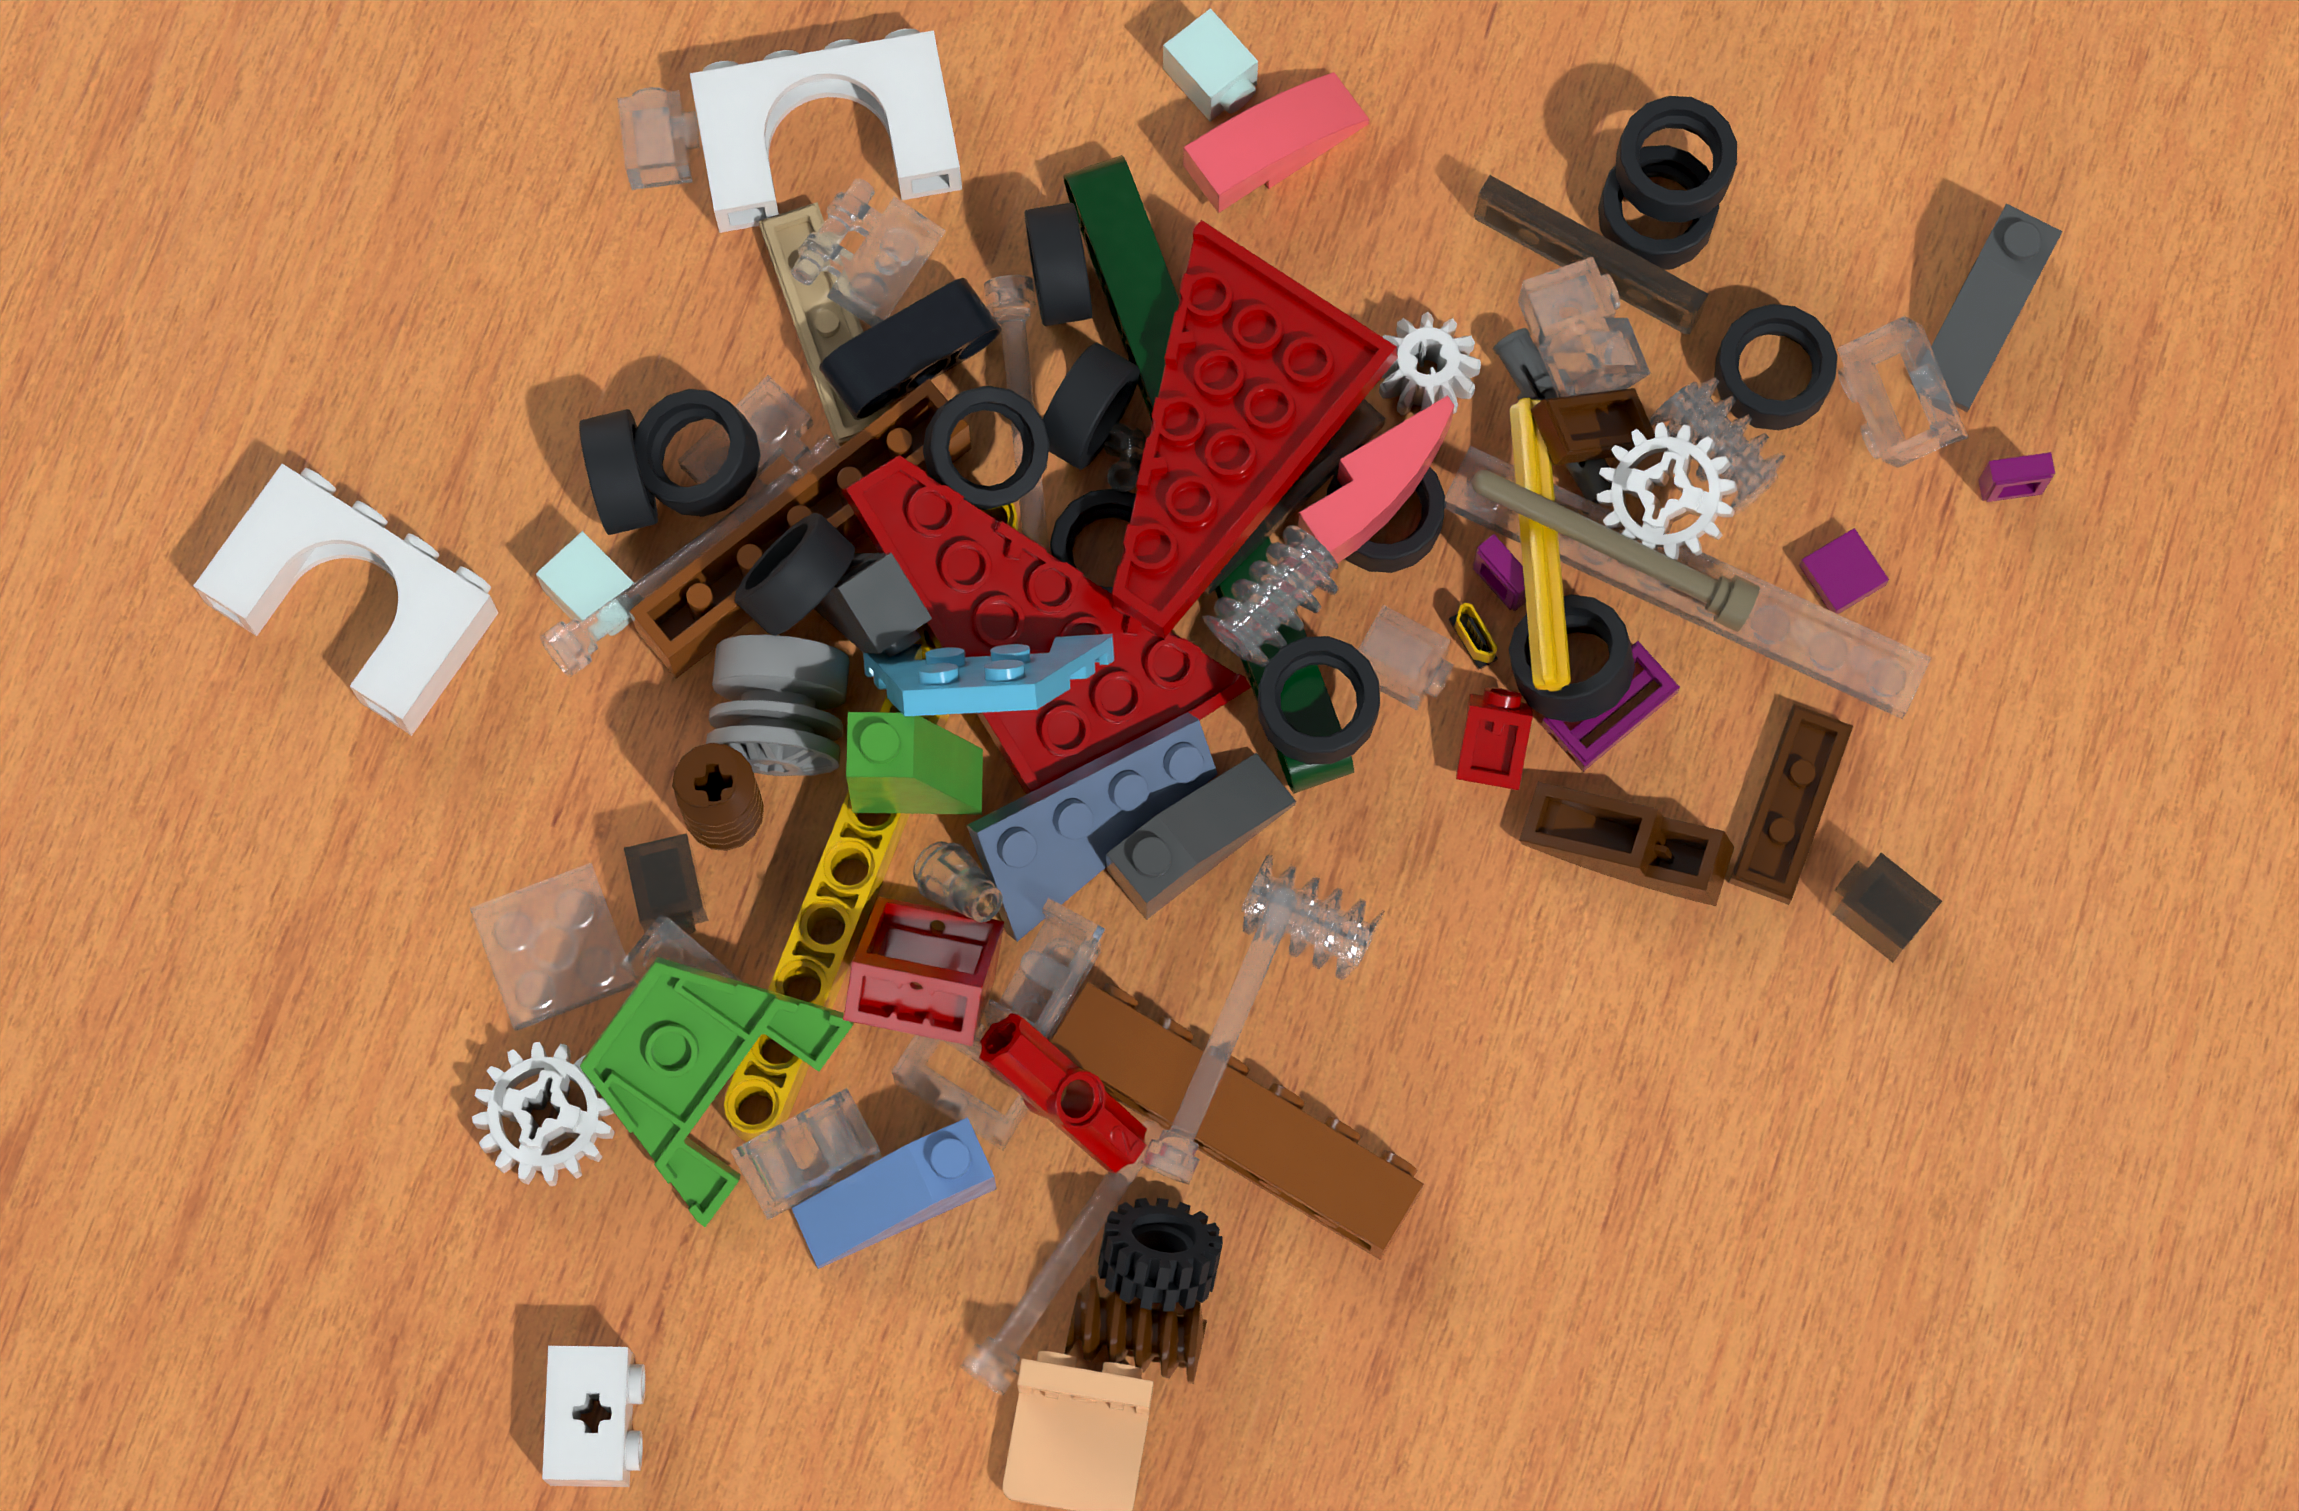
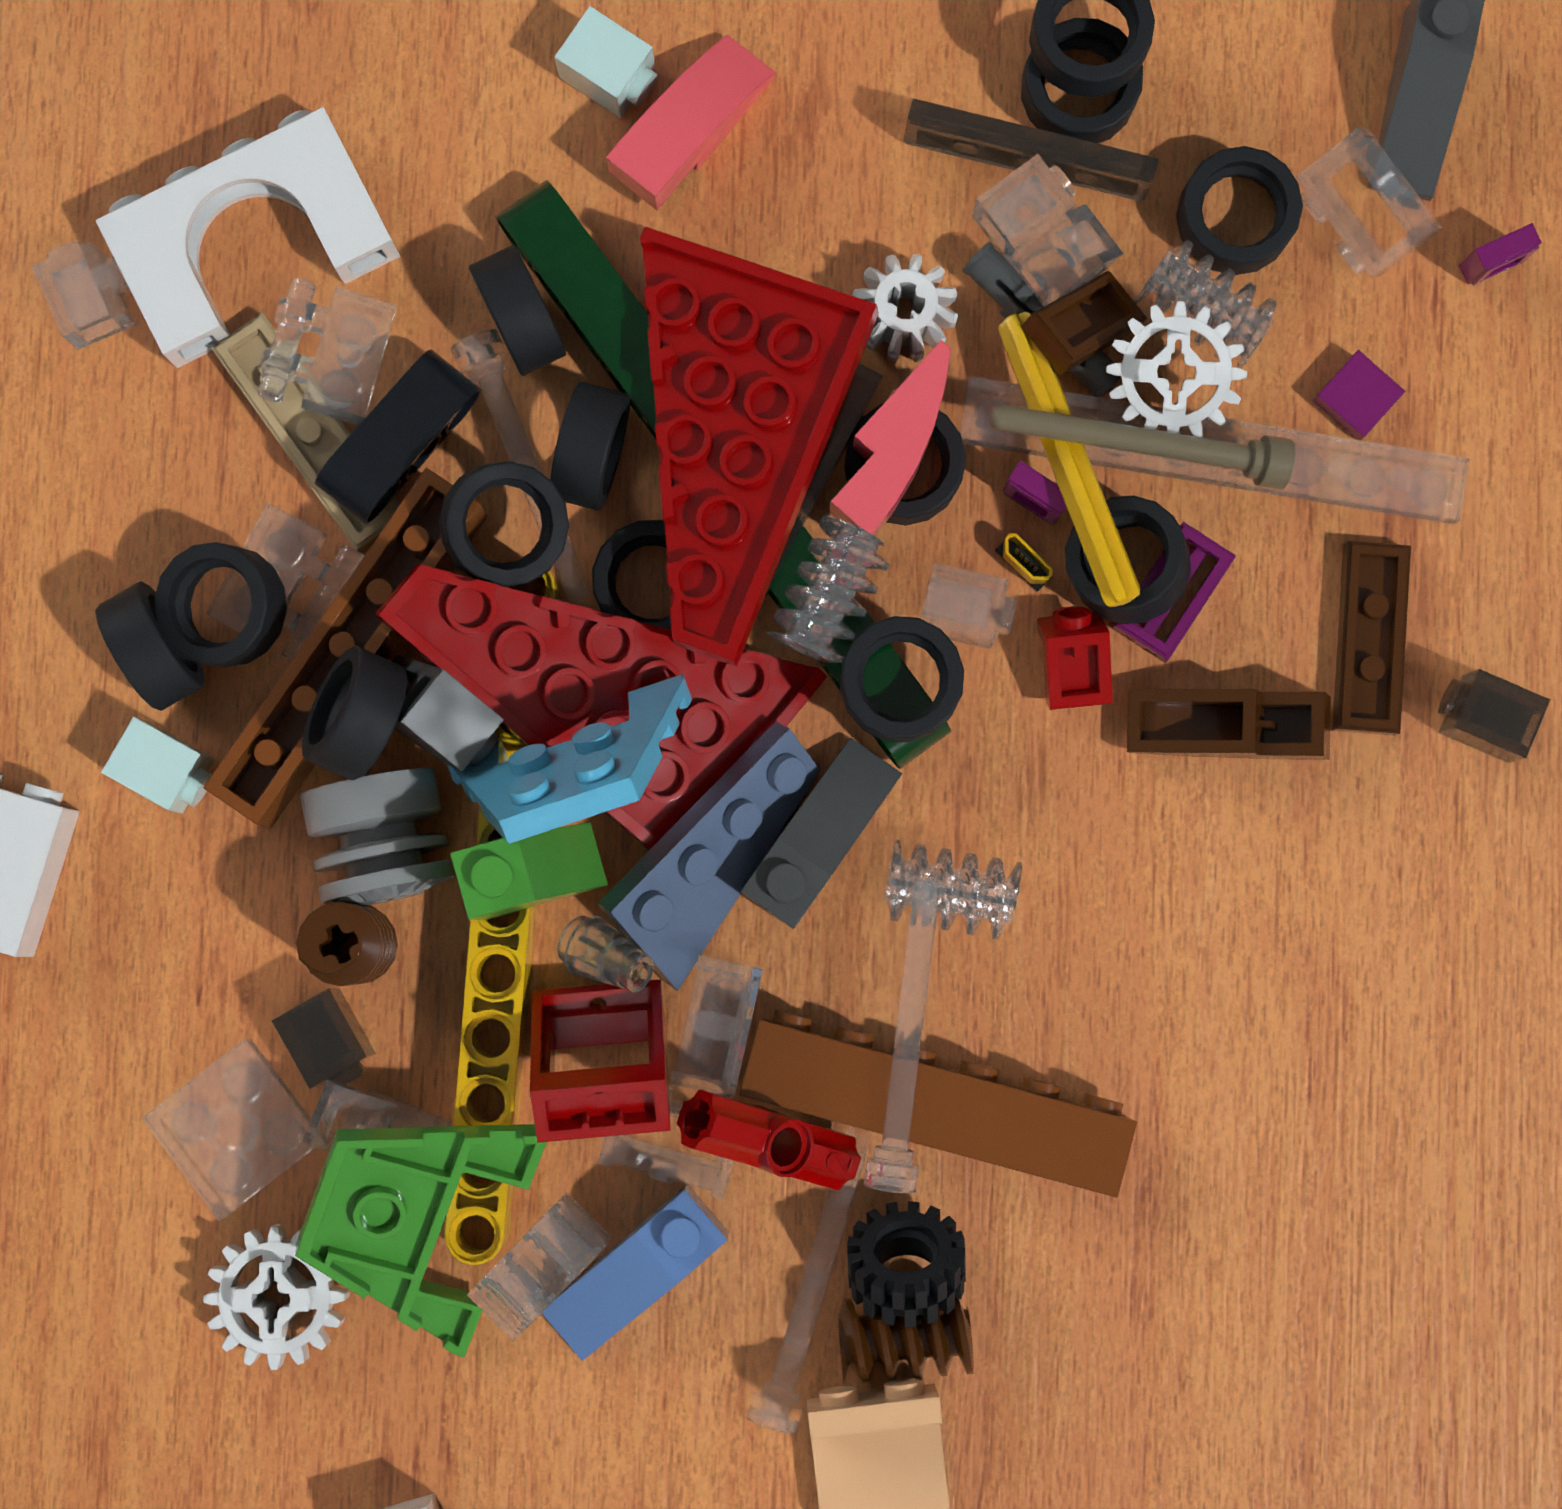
camera: 20 degrees left, 10 degrees up
(575, 642) = (161, 831): clear piece -> none
(1129, 447) = (644, 473): clear smoke arm -> none

